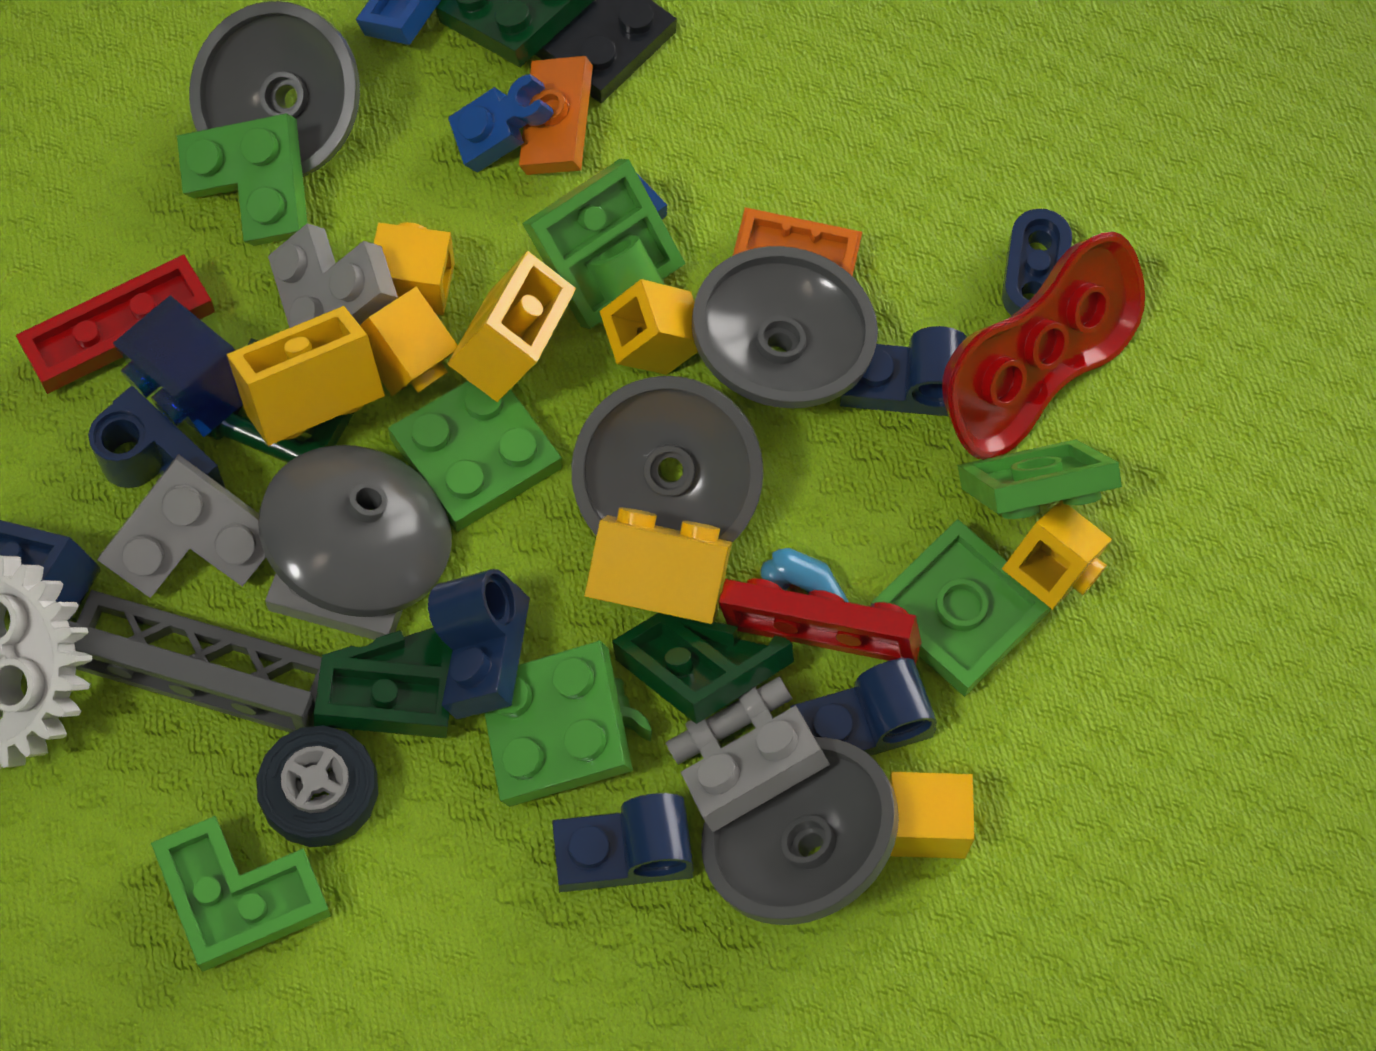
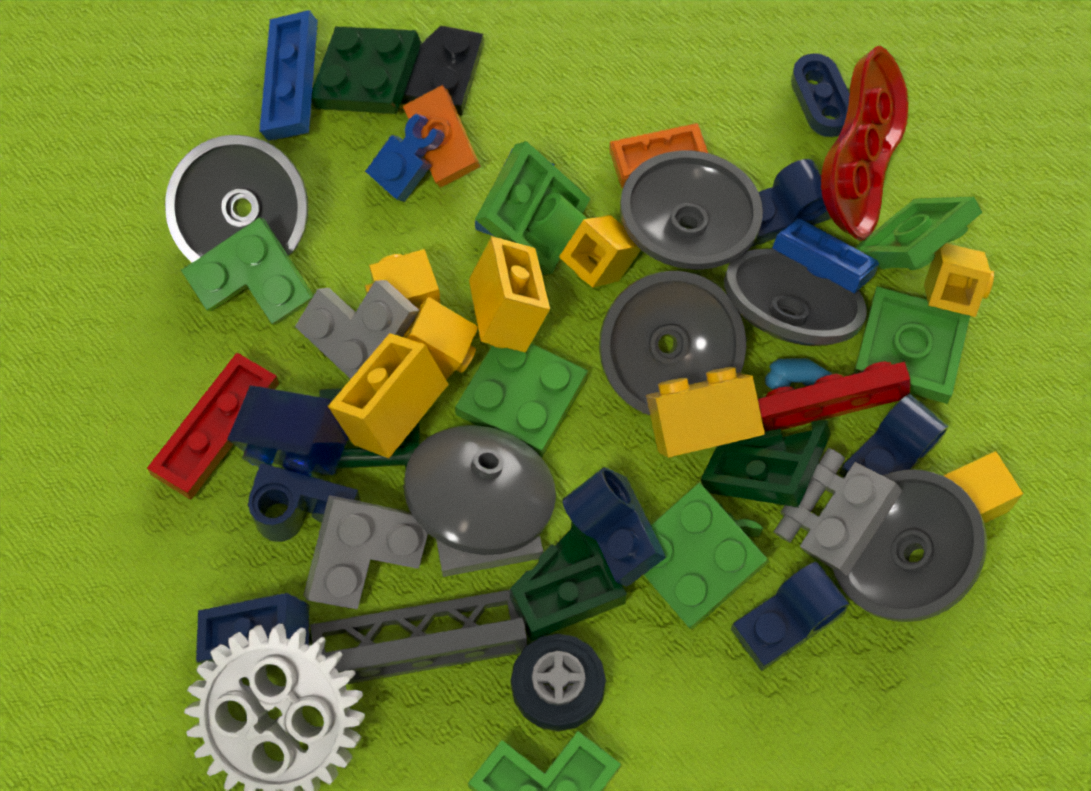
camera: 25 degrees left, 0 degrees up
(845, 484) = (791, 301): none -> dark grey dish
(915, 454) = (826, 255): none -> blue plate

